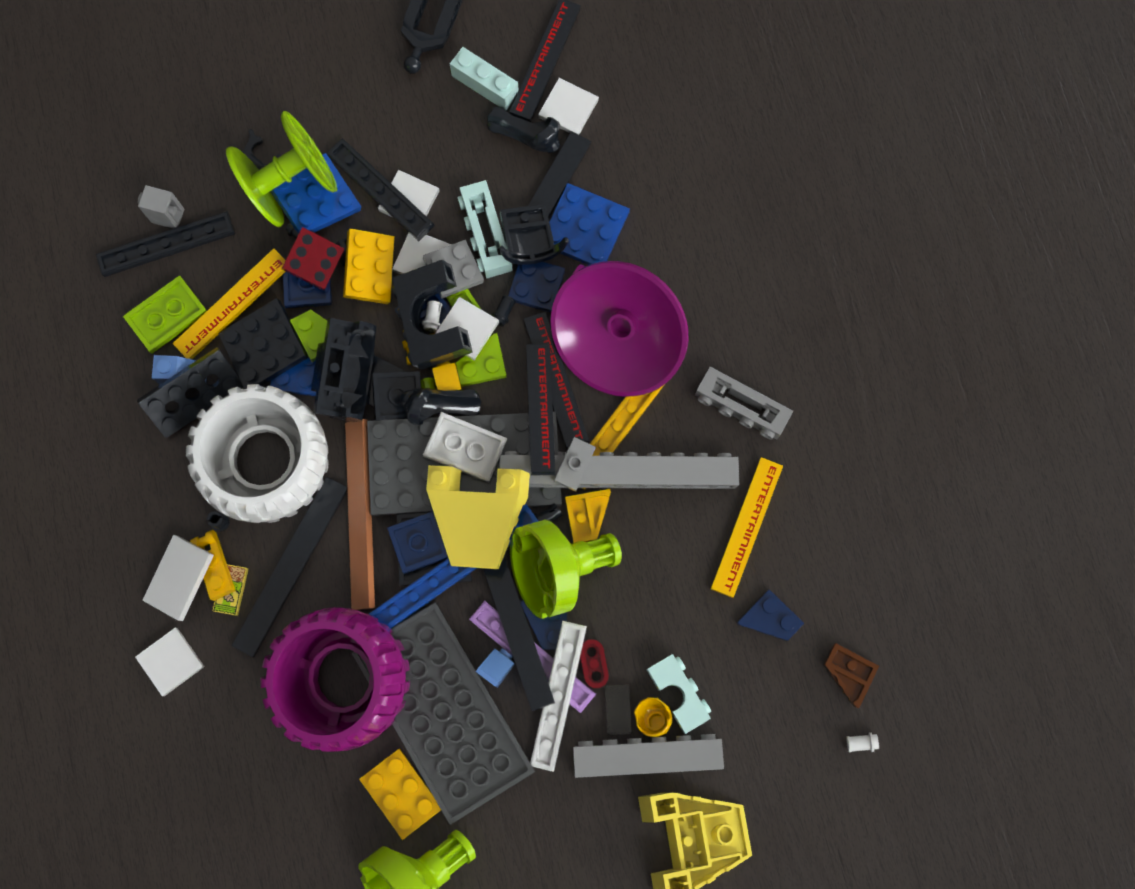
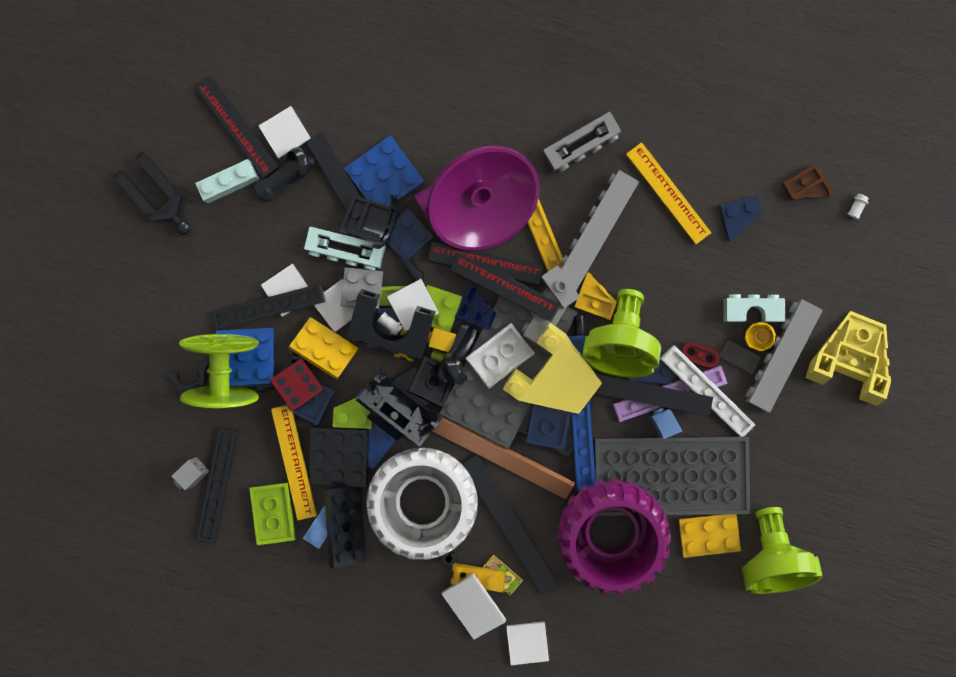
camera: 60 degrees left, 10 degrees up
(500, 395) = (475, 309): none -> clear blue wing

